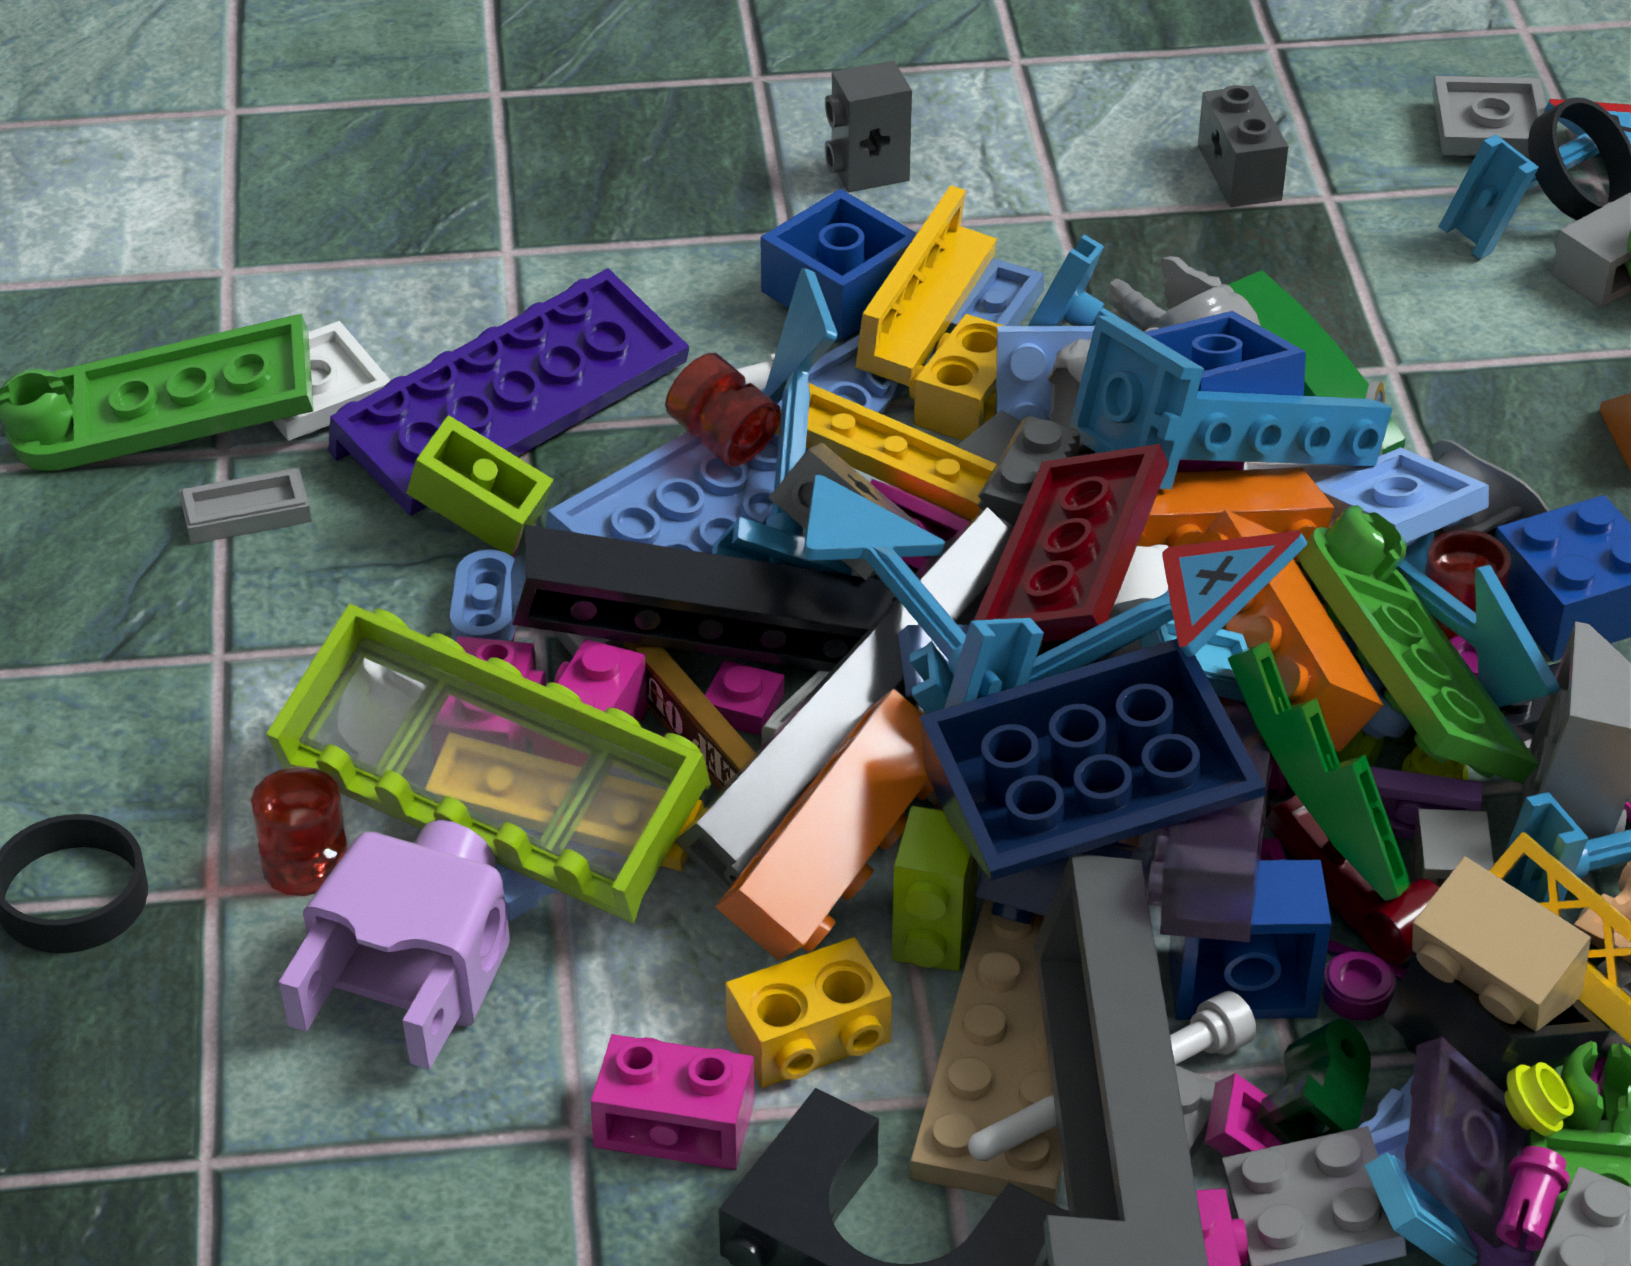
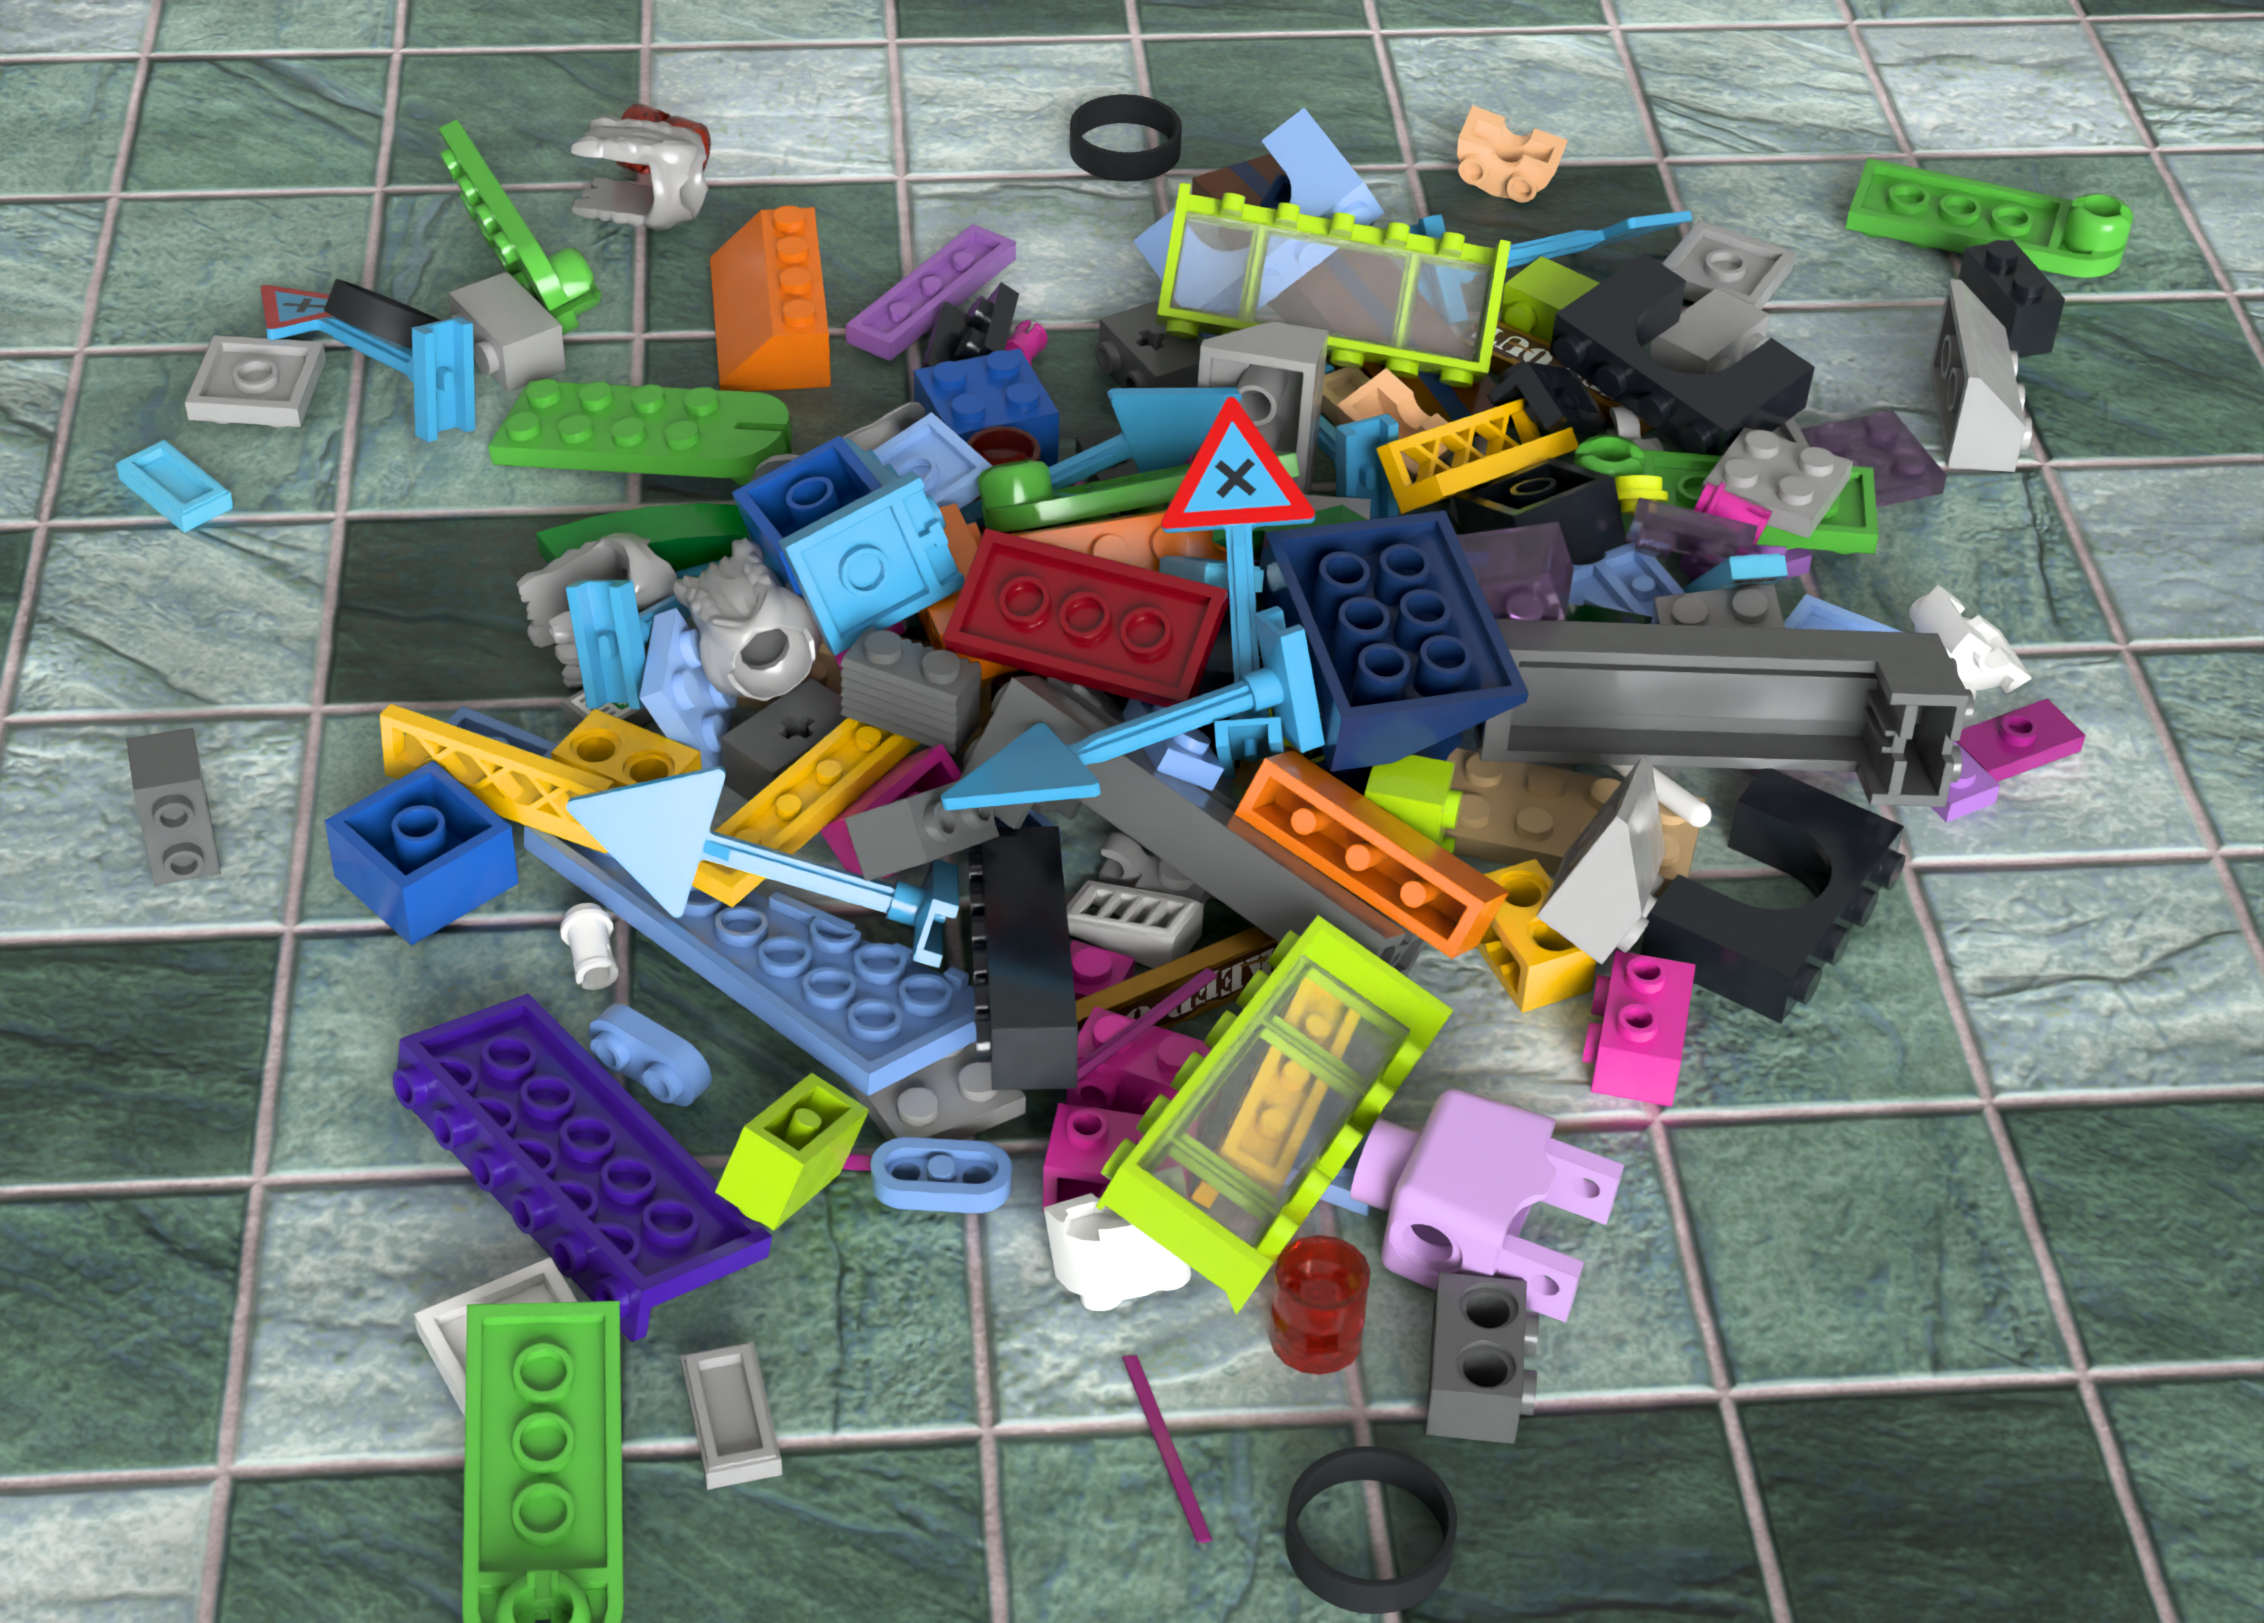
camera: 90 degrees left, 0 degrees up
(178, 766) = (1167, 1449): none -> magenta piece
(230, 947) = (1479, 1358): none -> dark grey brick
(607, 675) = (1144, 1022): none -> magenta piece
(620, 420) = (649, 1055): none -> medium blue plate
(720, 408) = (732, 916): clear red wheel -> none
(846, 1030) = (1610, 871): none -> slope
(1242, 145) = (269, 544): dark grey brick -> none
(1336, 99) = (174, 486): none -> medium azure tile
(1483, 350) = (642, 430): none -> bright green plate
(1501, 946) = (1538, 458): tan slope -> none

